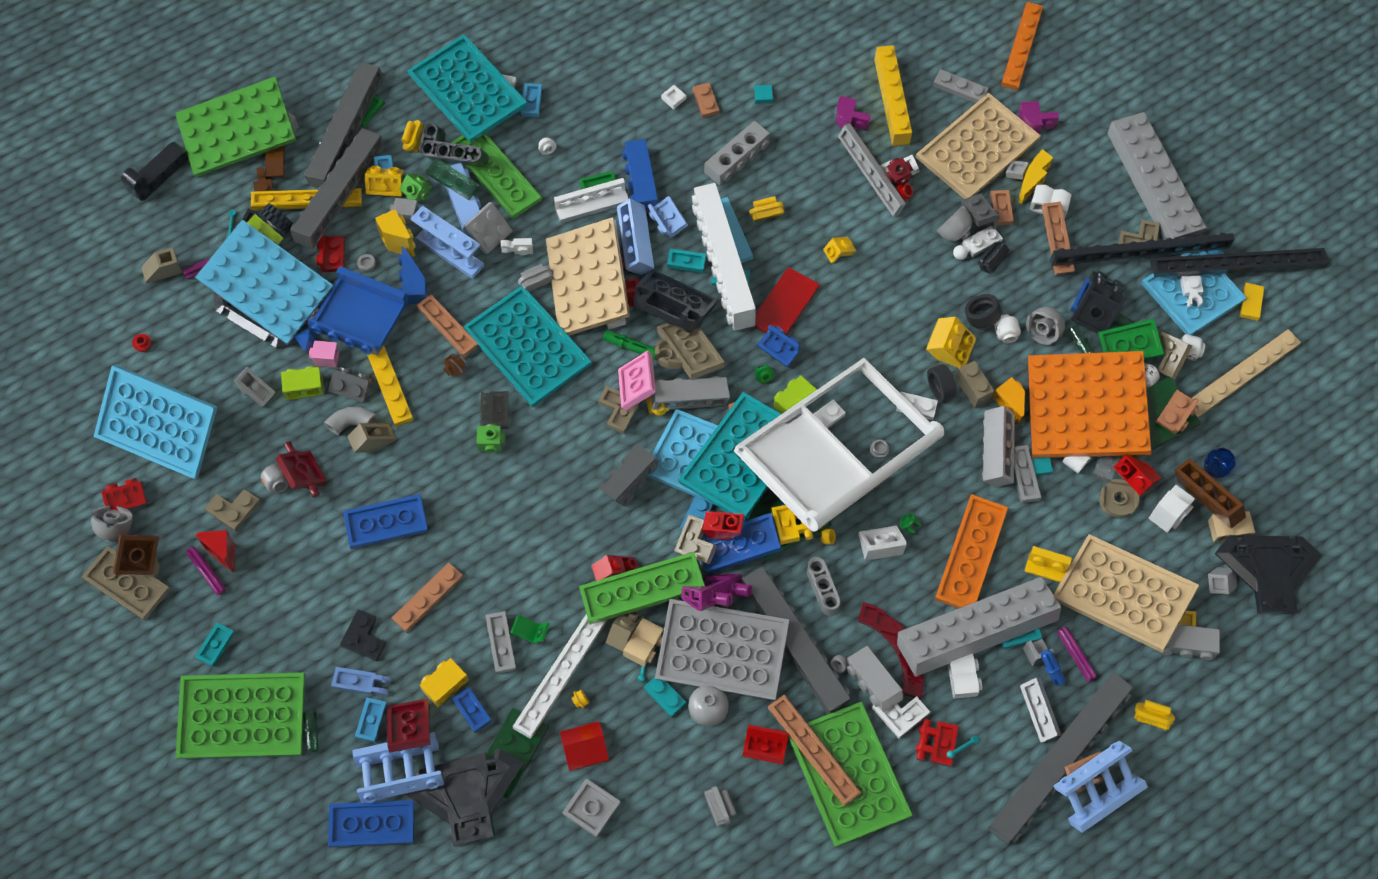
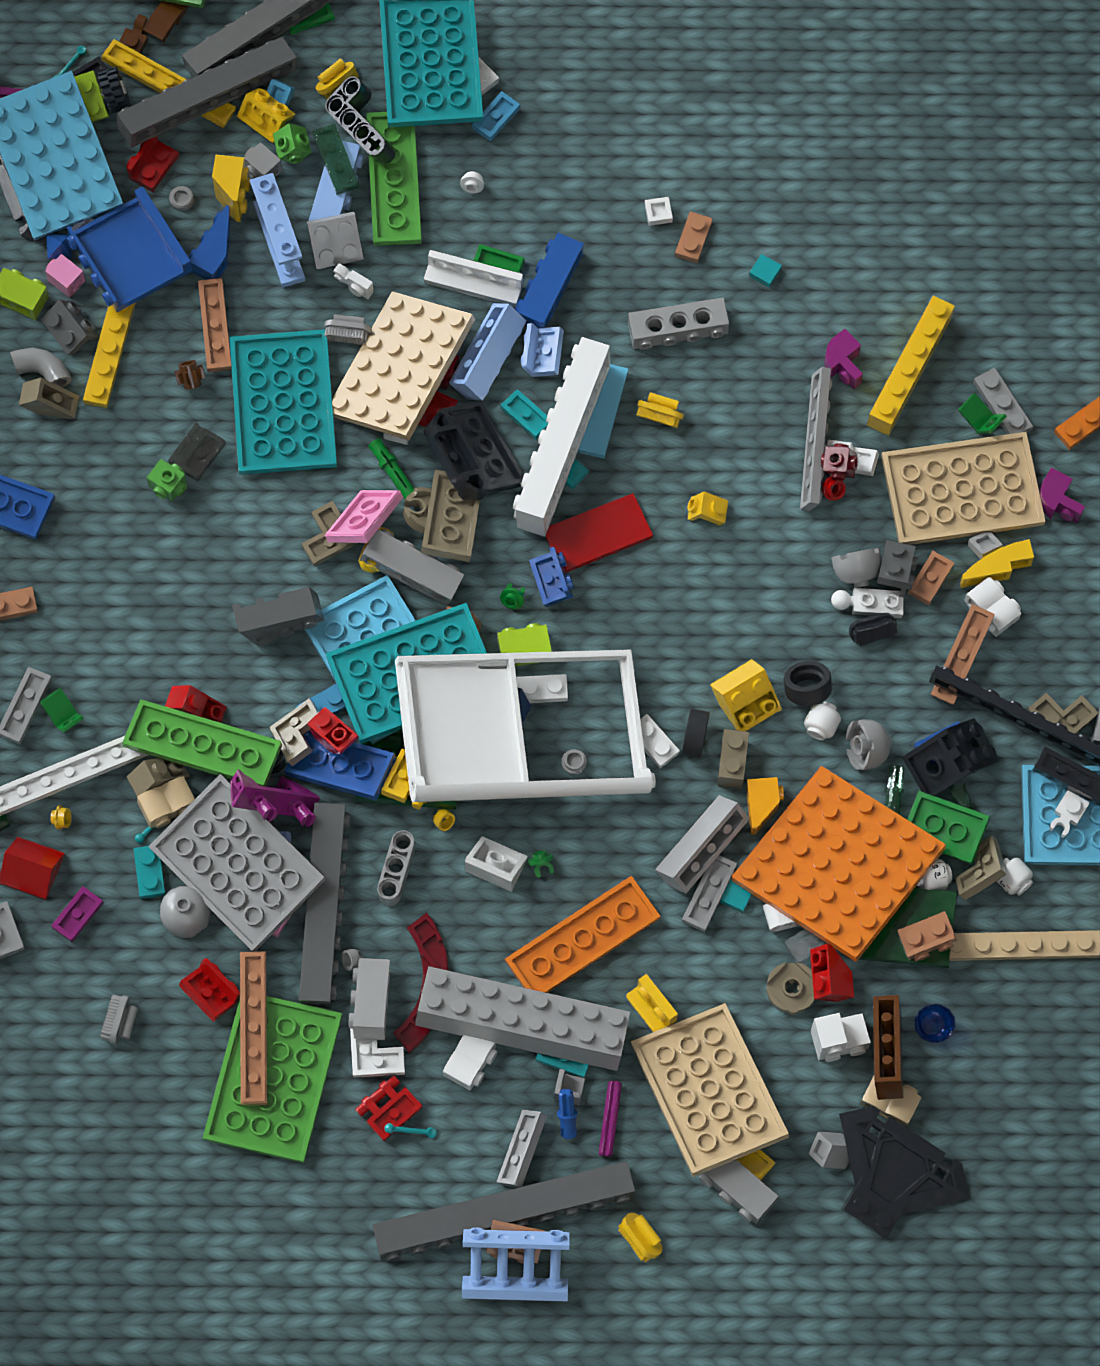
camera: 35 degrees right, 5 degrees up
(639, 755) = (77, 914): none -> magenta plate
(956, 101) = (979, 415): none -> green bracket

